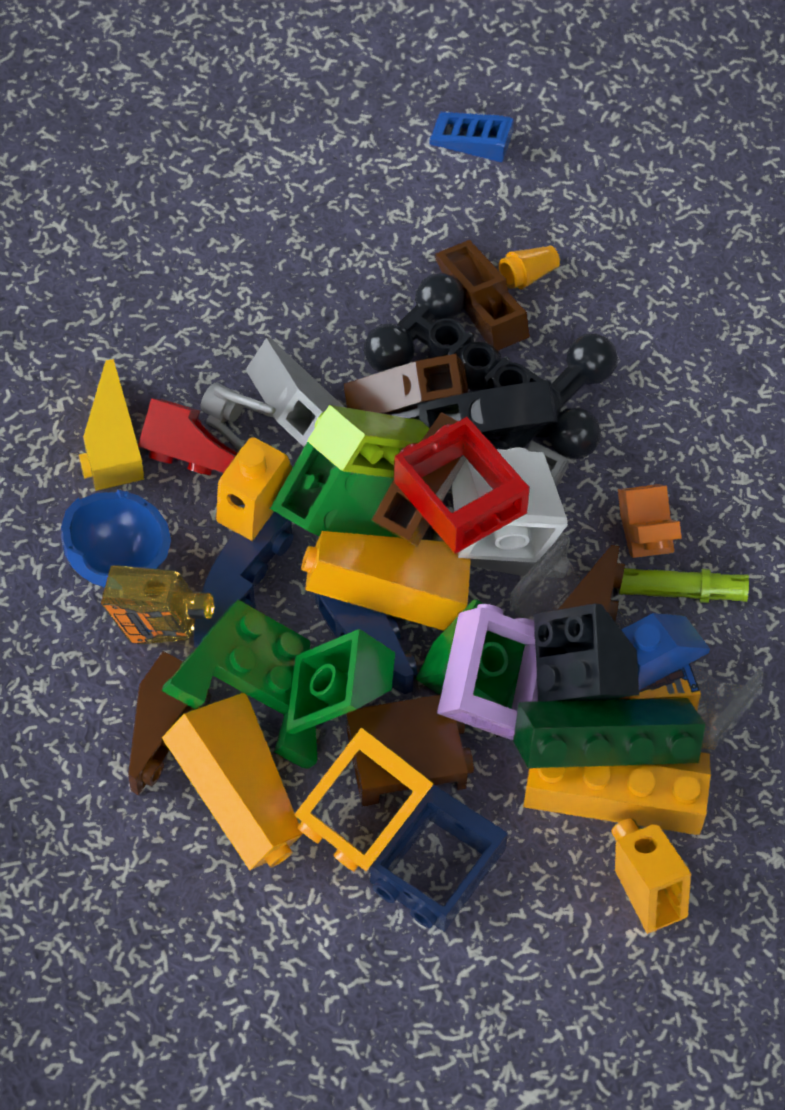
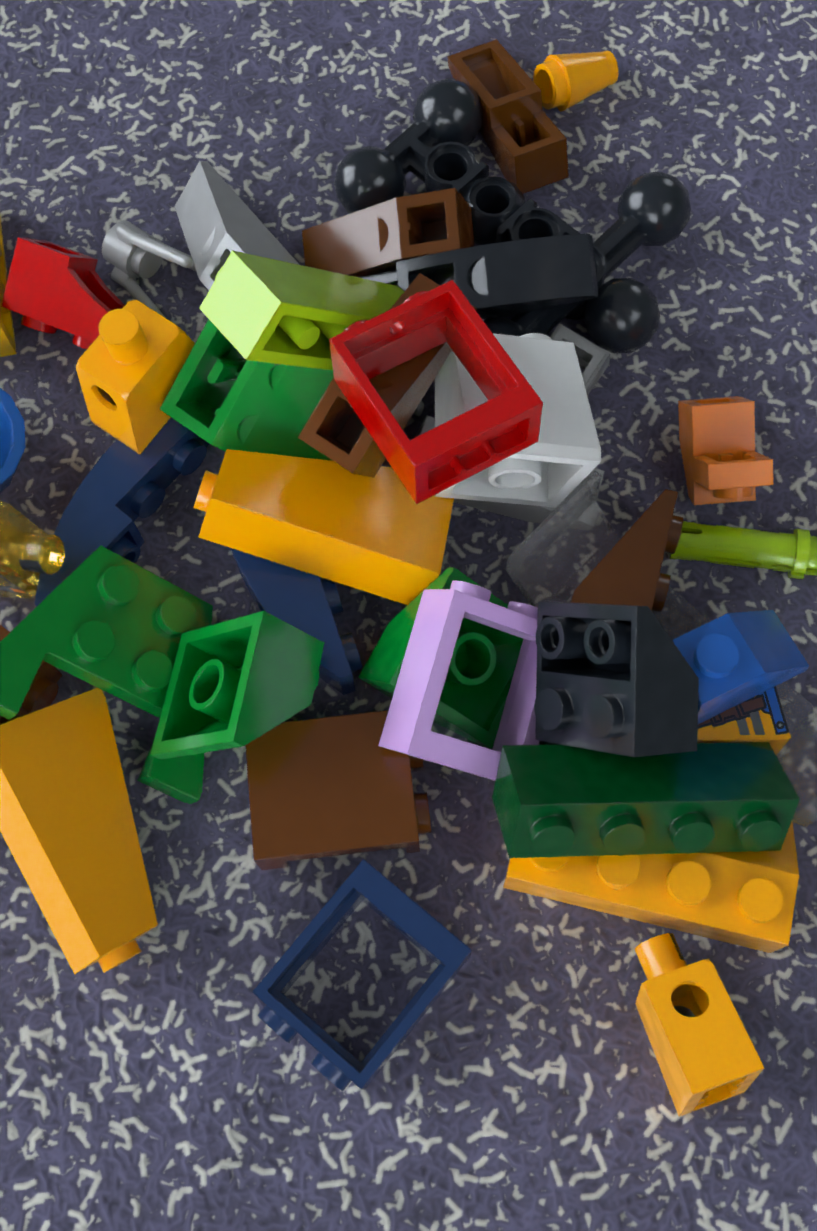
camera: 10 degrees right, 10 degrees up
(317, 829) = (300, 837): light orange window -> none

